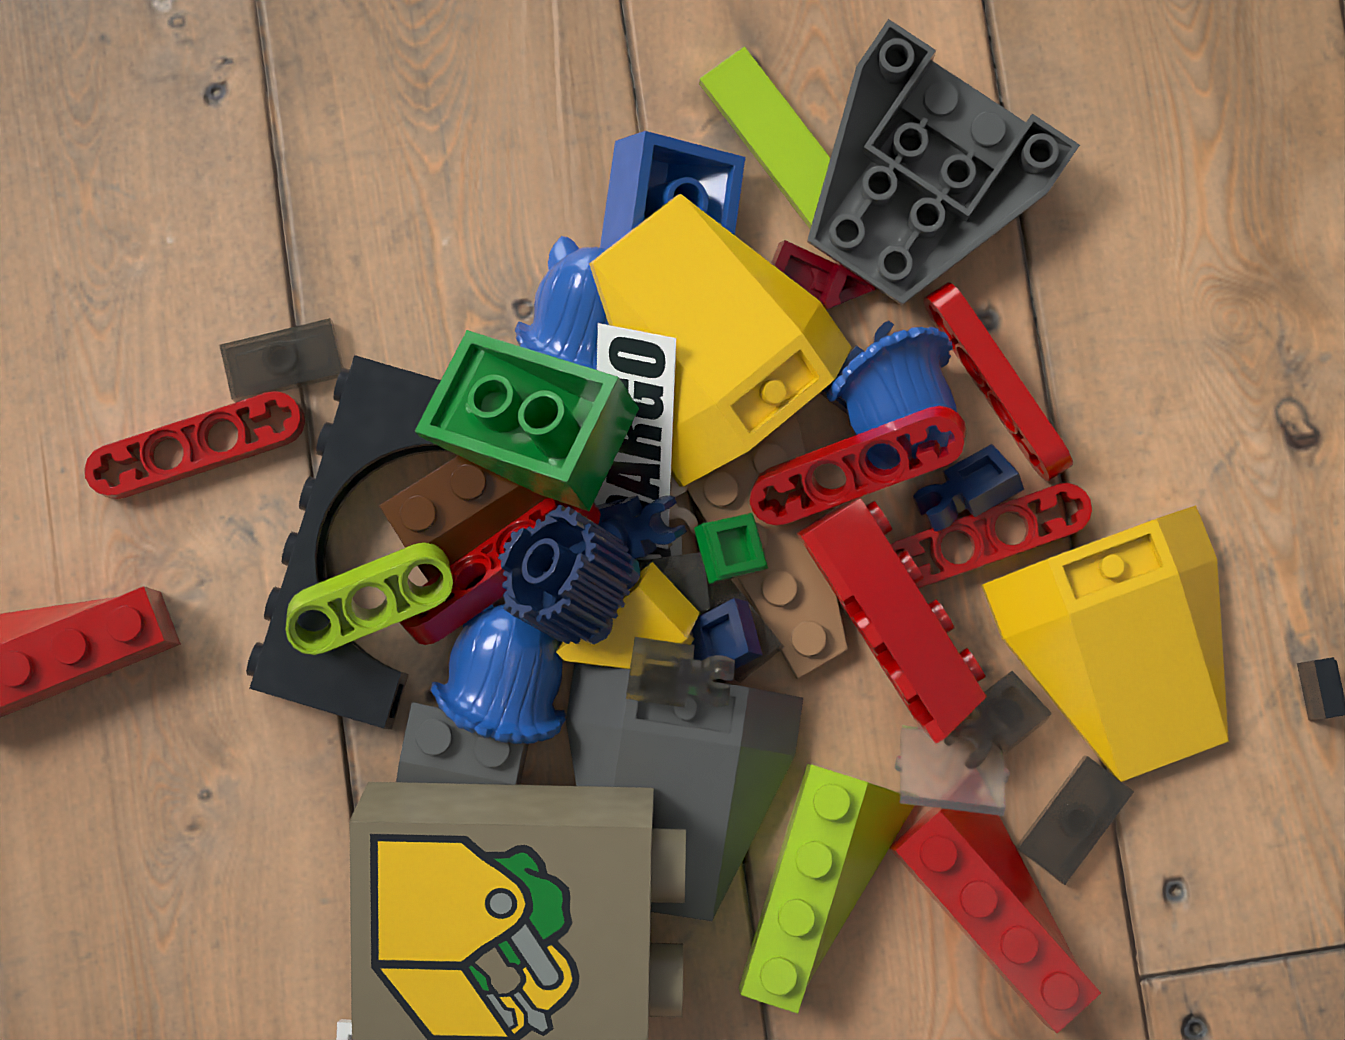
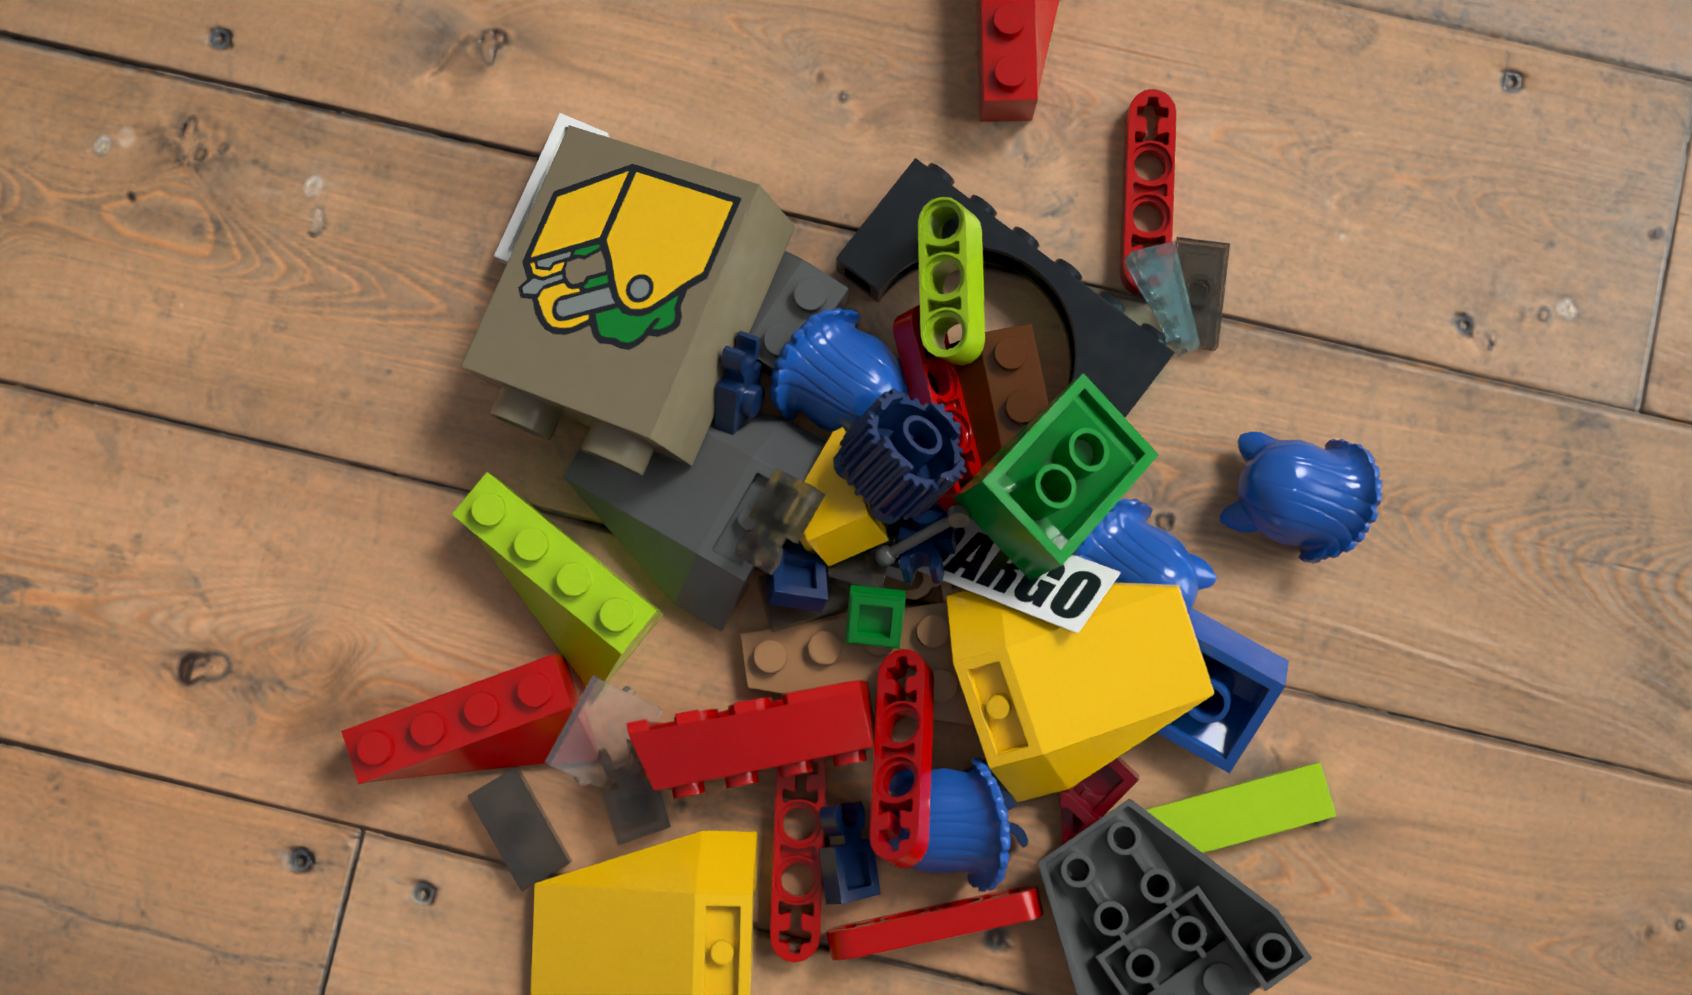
camera: 115 degrees right, 0 degrees up
(294, 388) = (1164, 289): none -> clear light blue slope
(446, 180) = (1306, 494): none -> blue hair
(559, 770) = (739, 390): none -> dark blue plate
(606, 500) = (956, 517): none -> dark grey hinge

